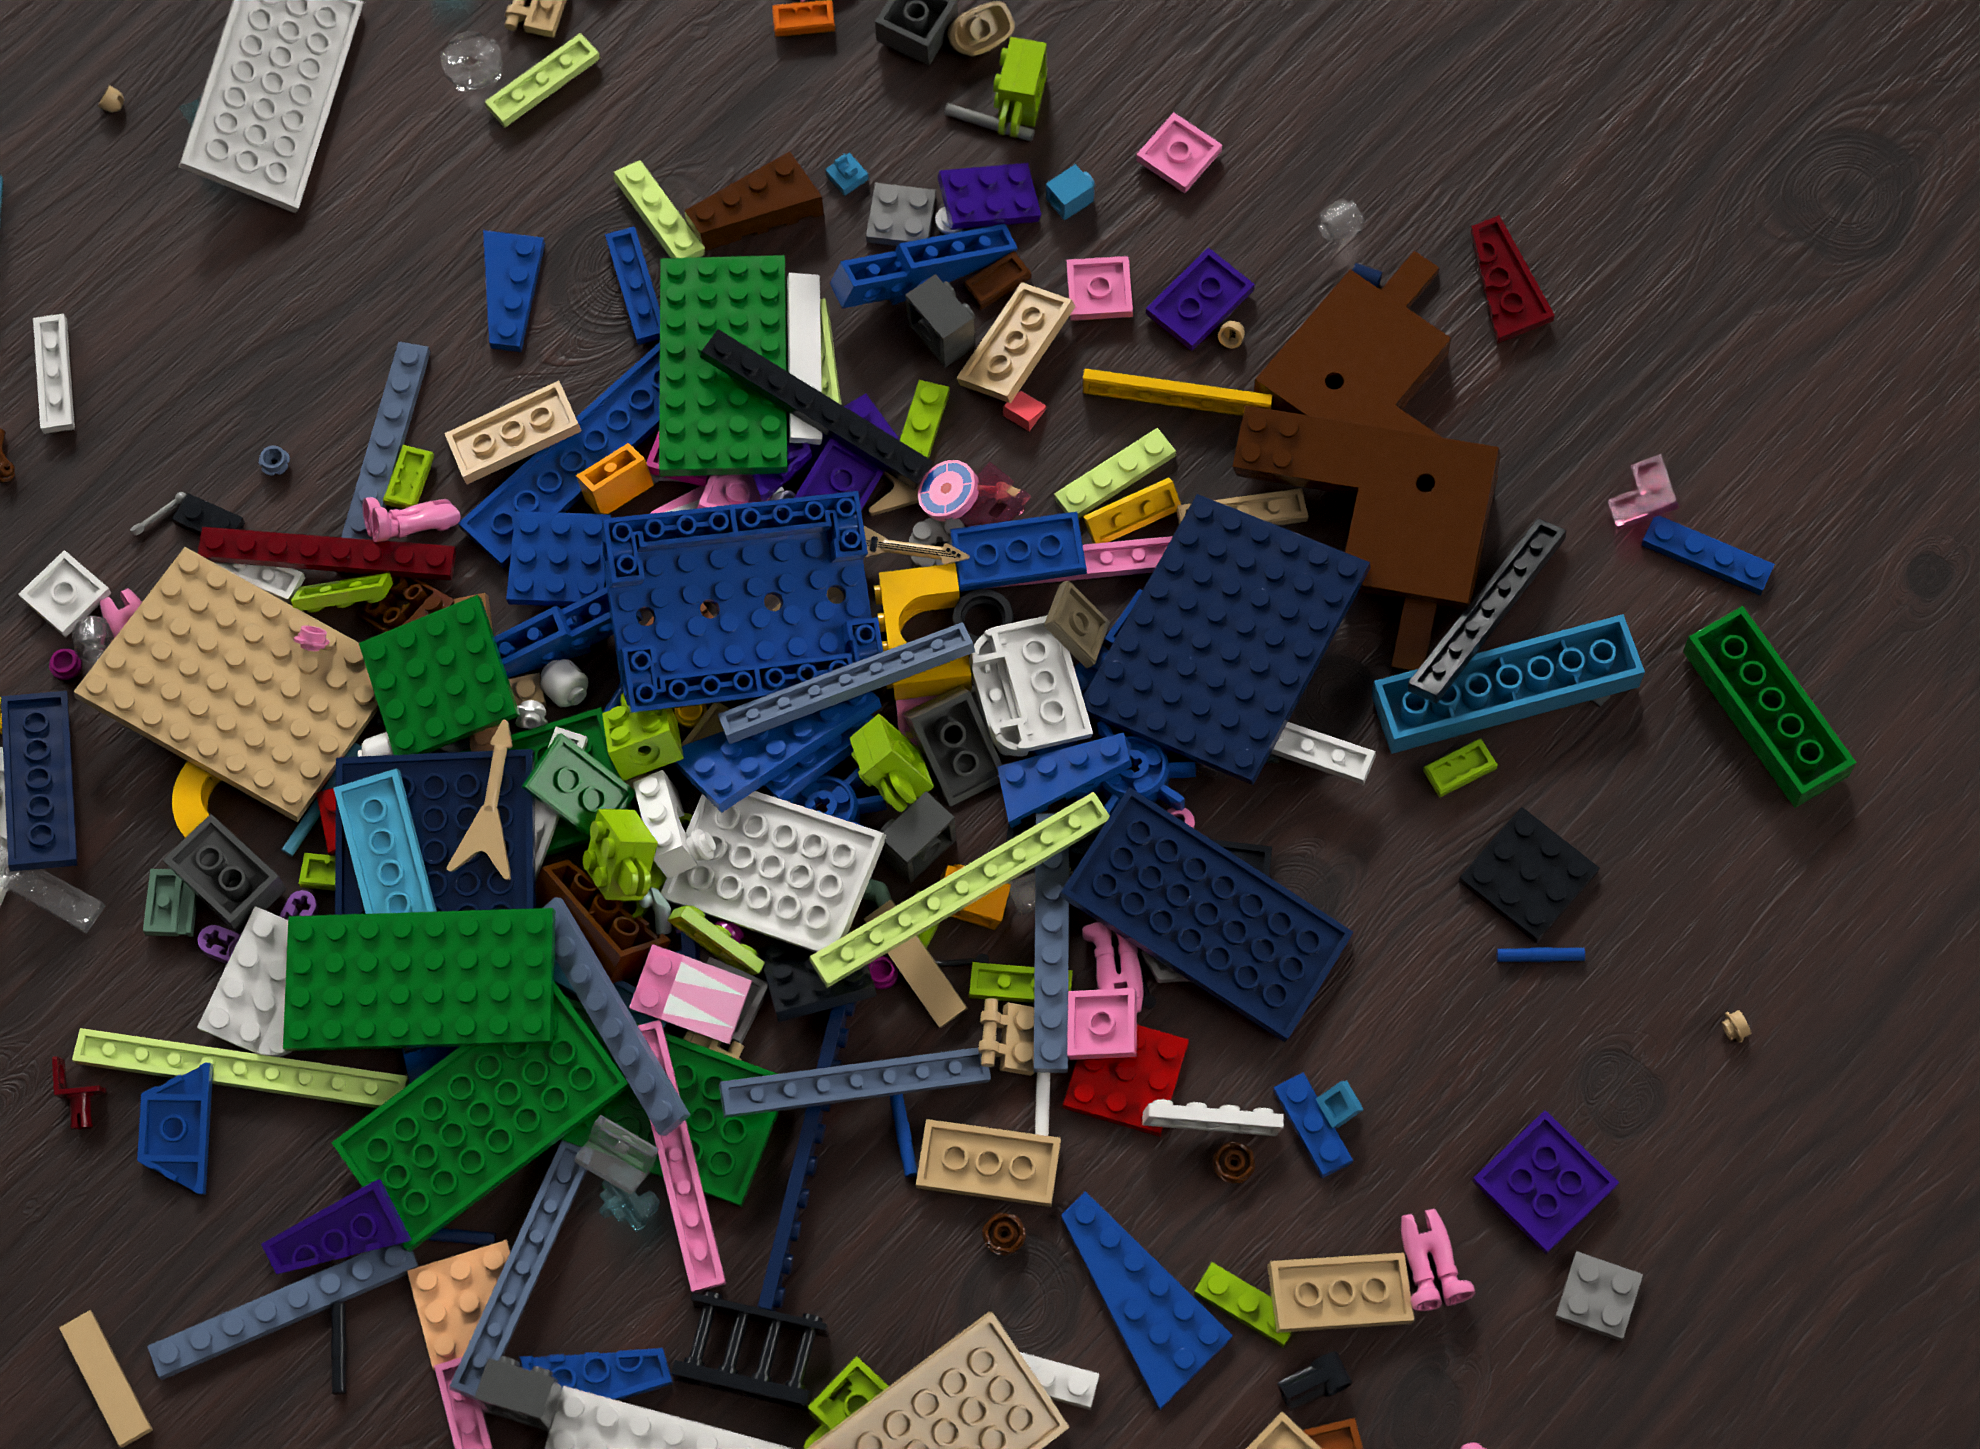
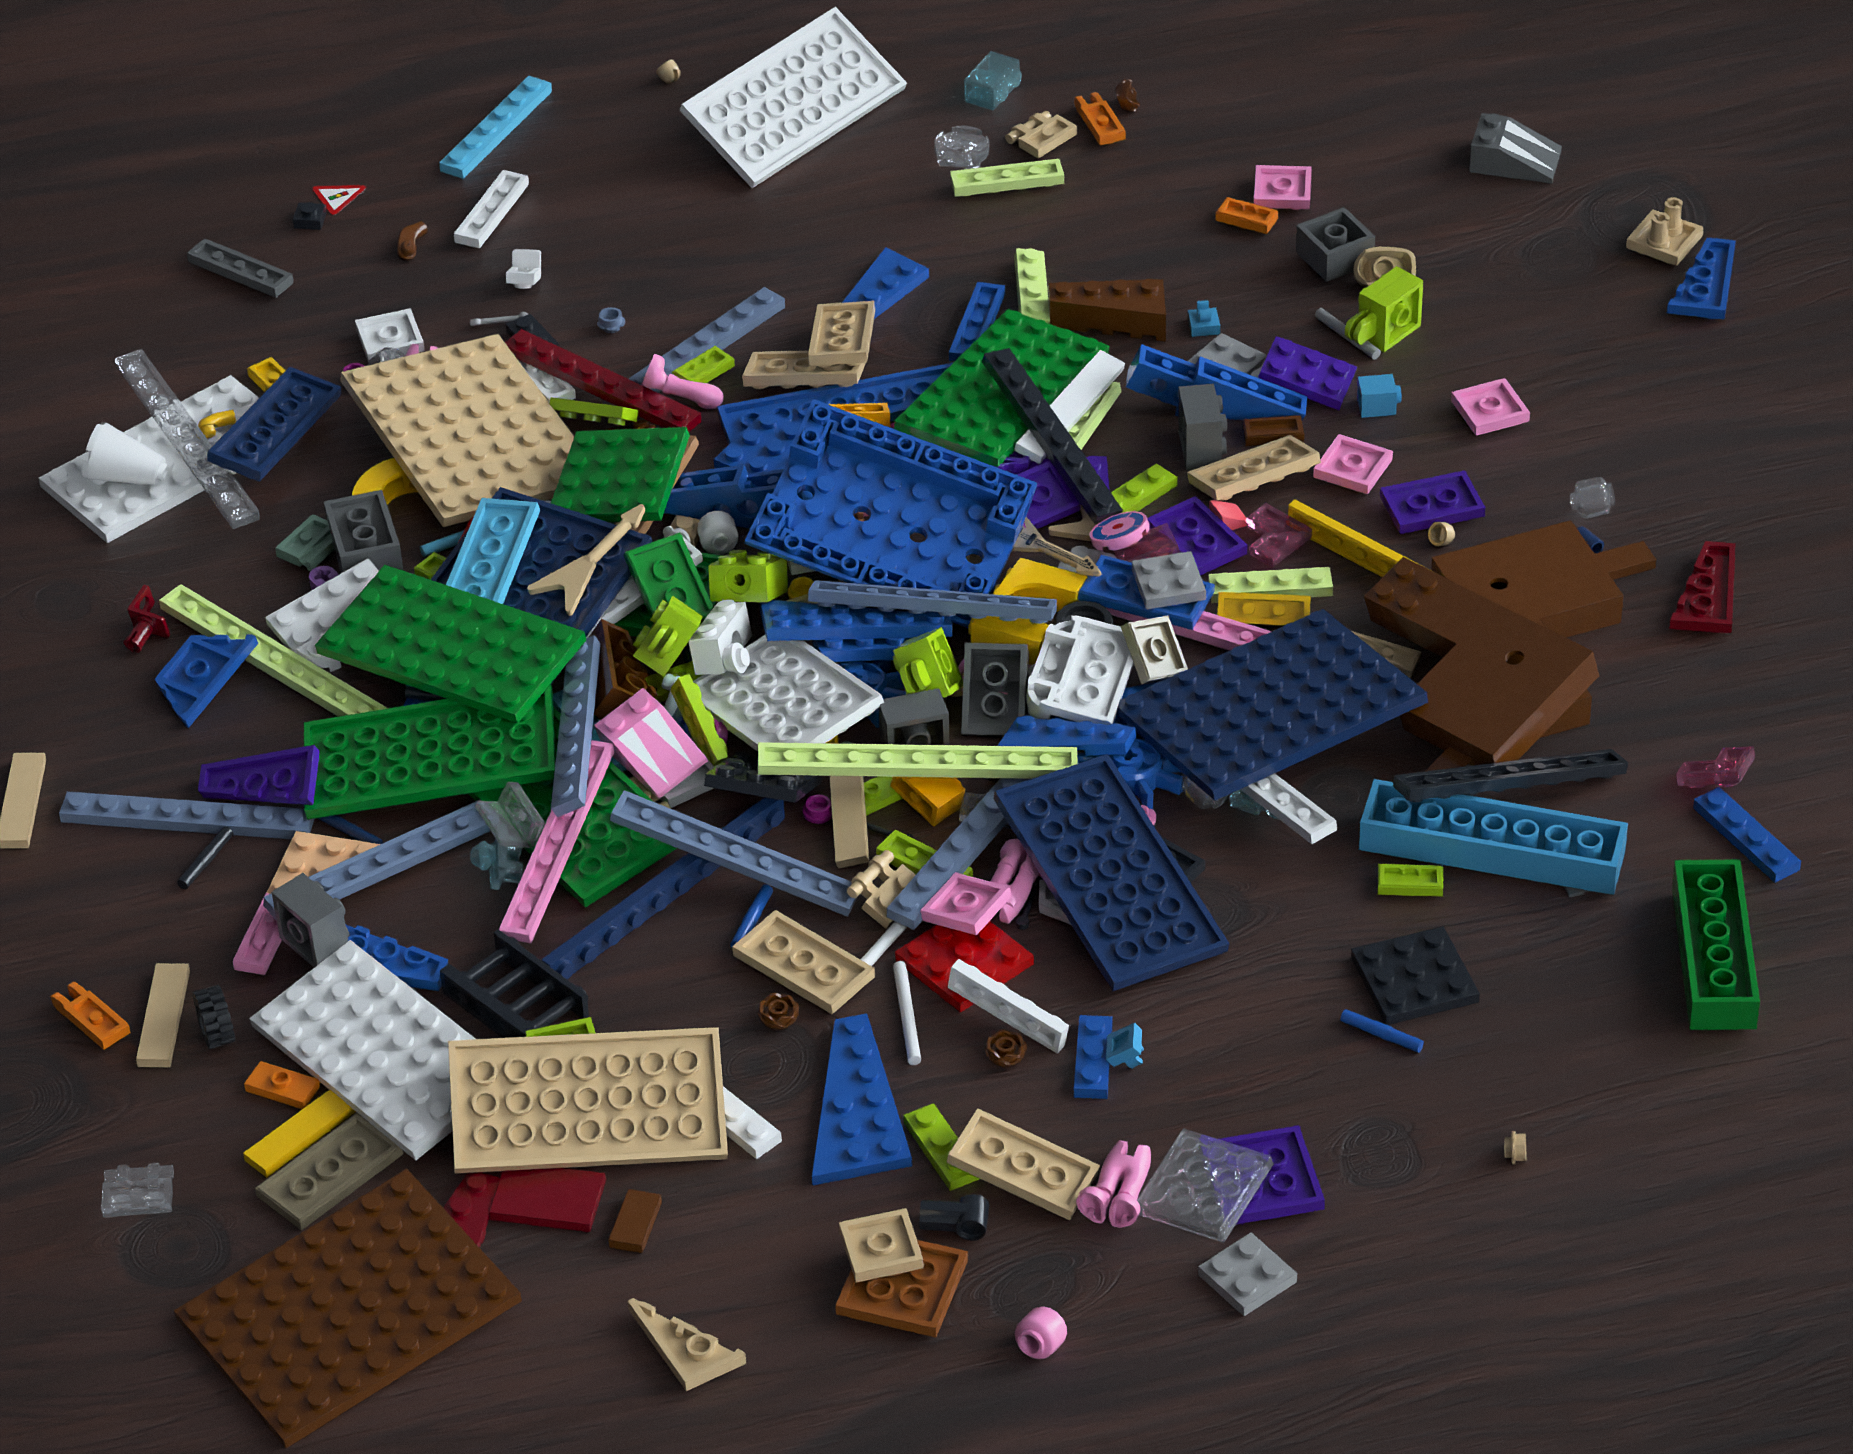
camera: 30 degrees right, 25 degrees down
(144, 439) = (525, 268): none -> white bracket
(312, 638) = (544, 418): bright pink plate -> none
(527, 376) = (841, 334): none -> tan plate
(1016, 448) = (1201, 533): none -> dark purple plate
(1036, 532) = (1168, 580): none -> light grey plate
(1090, 406) = (1279, 534): none -> clear pink plate
(1116, 1167) = (907, 1013): none -> white bar
(1509, 1227) = (1204, 1185): none -> clear plate

